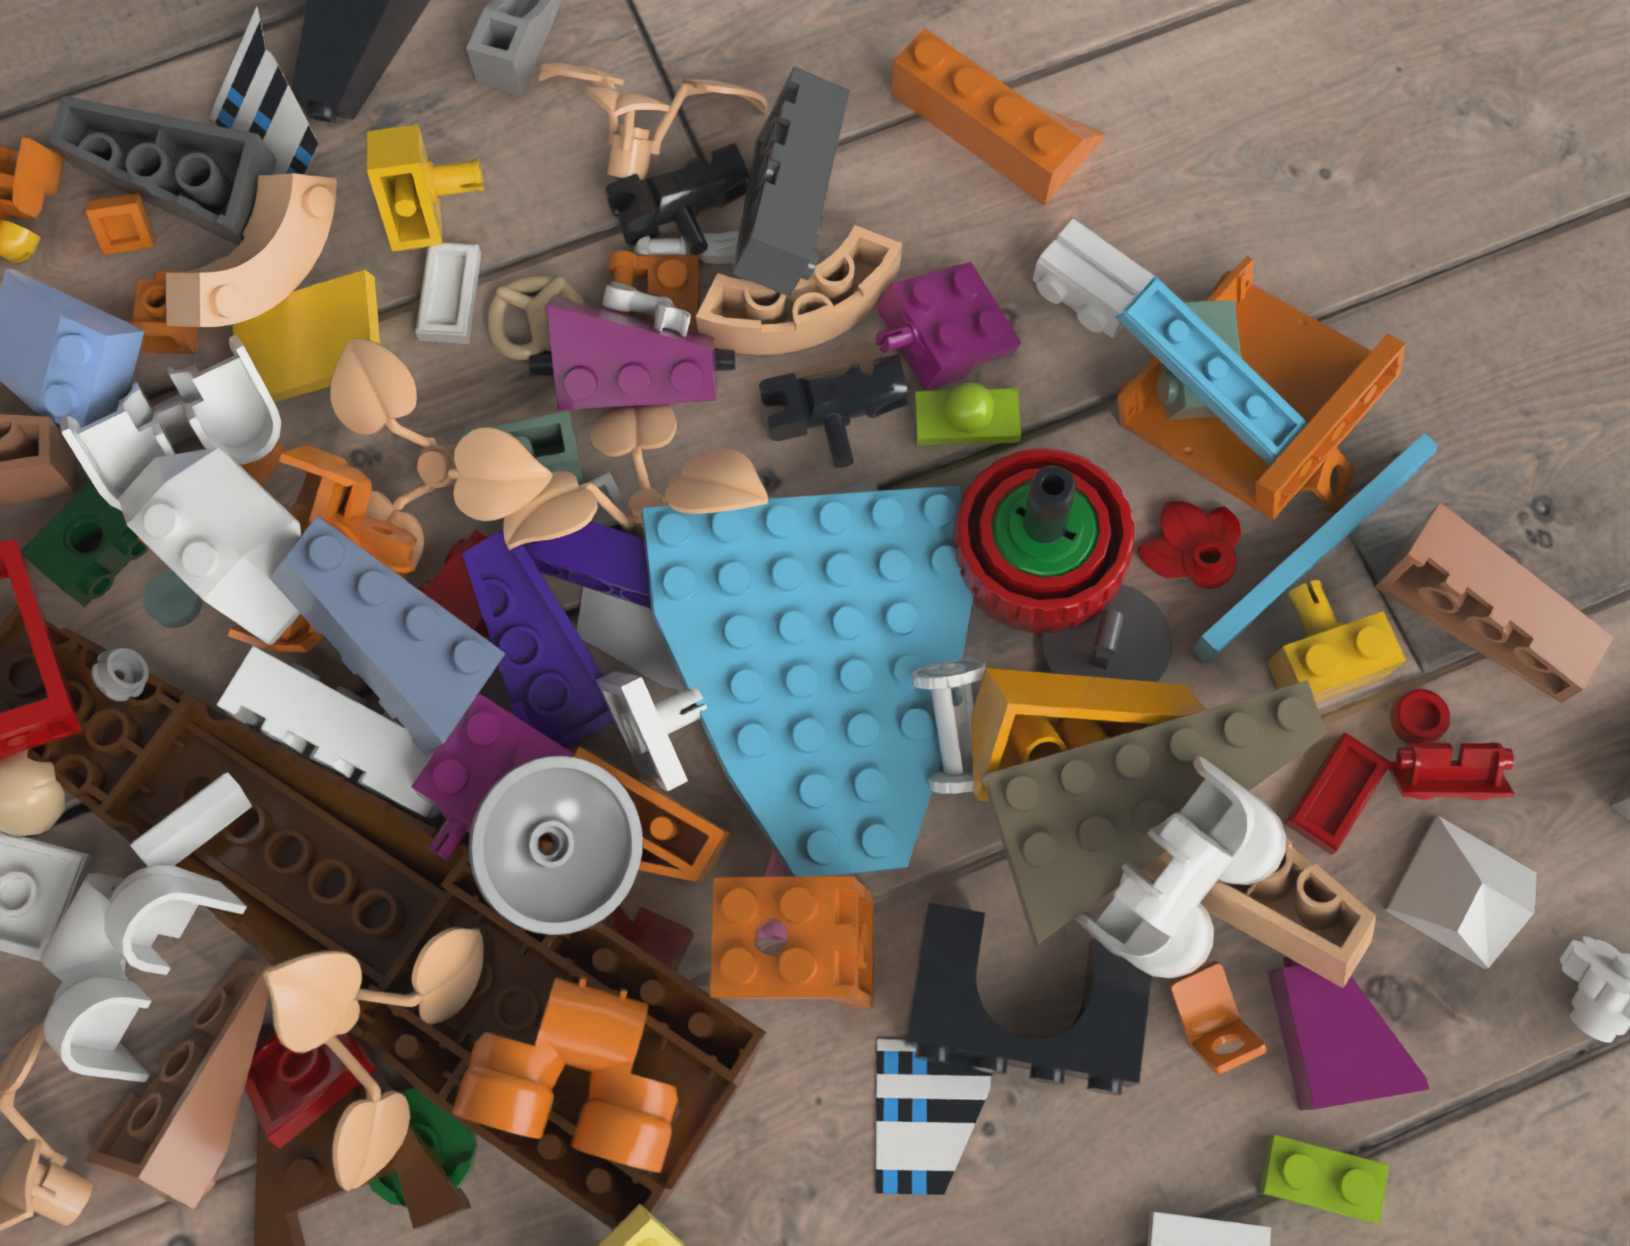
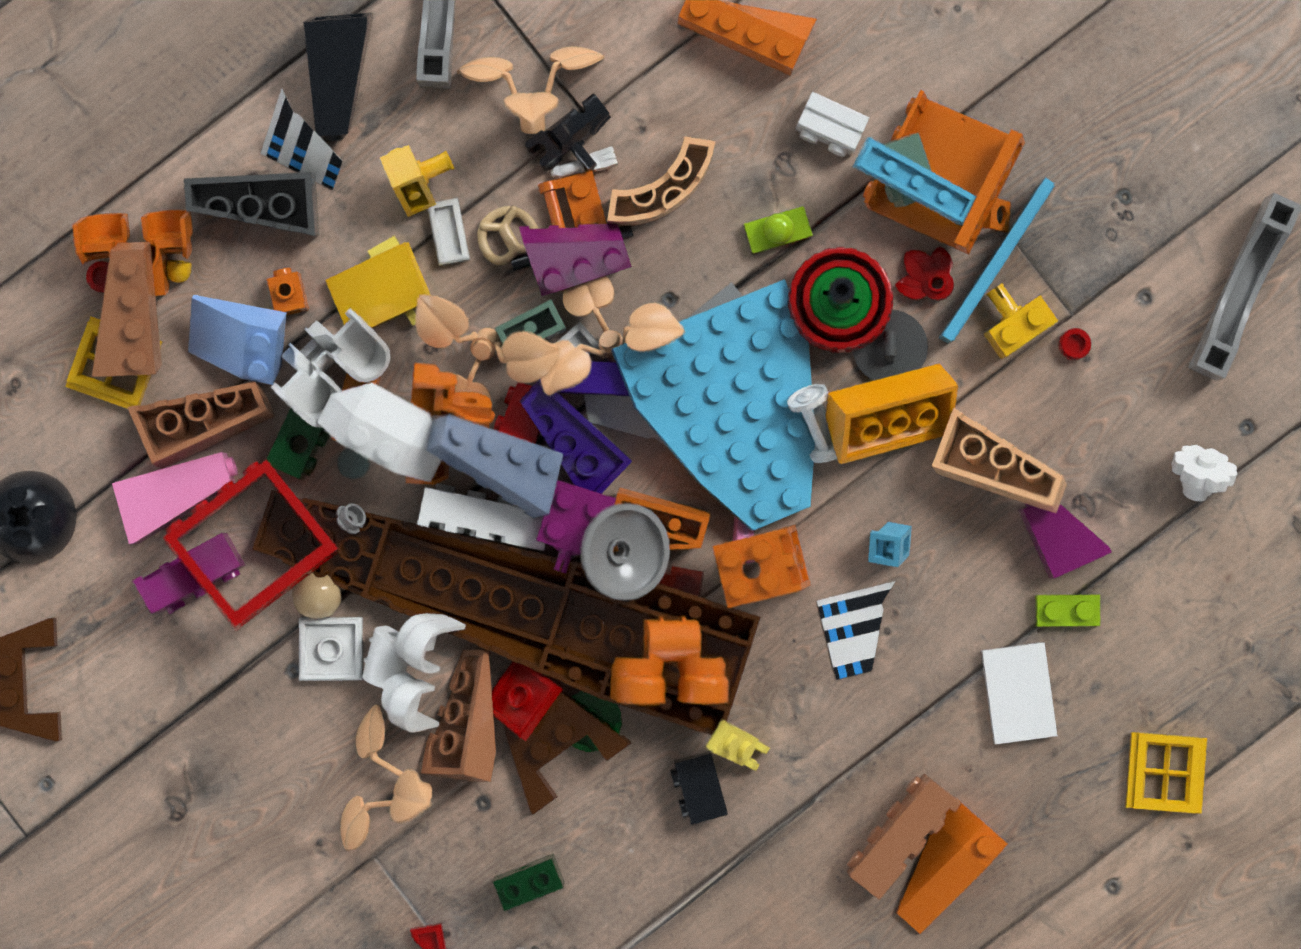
camera: 20 degrees left, 15 degrees up
(121, 224) = (239, 242): orange tile -> none
(192, 823) = (421, 589): white tile -> none
(273, 259) = (341, 248): light nougat brick -> none
(319, 998) = (533, 668): light nougat plant -> none
(627, 298) = (558, 214): white arm -> none
(647, 725) = (650, 469): white tile -> none
(790, 183) = (638, 121): dark grey wedge -> none
(832, 401) = (698, 242): black piece -> none
(945, 324) = (751, 176): magenta plate -> none
(949, 1017) = (935, 573): black arch -> none
(1029, 971) = (890, 544): none -> medium azure brick
(1089, 808) = (916, 448): dark tan wing -> none
(1212, 1018) = (992, 543): orange bracket -> none
(1214, 837) = (973, 456): white piece -> none
(1338, 793) = (1037, 400): red tile -> none
(1429, 772) = (1089, 377): red hinge -> none
(1464, 893) = (1115, 437): white slope -> none
(1494, 605) = (1104, 271): nougat wedge -> none

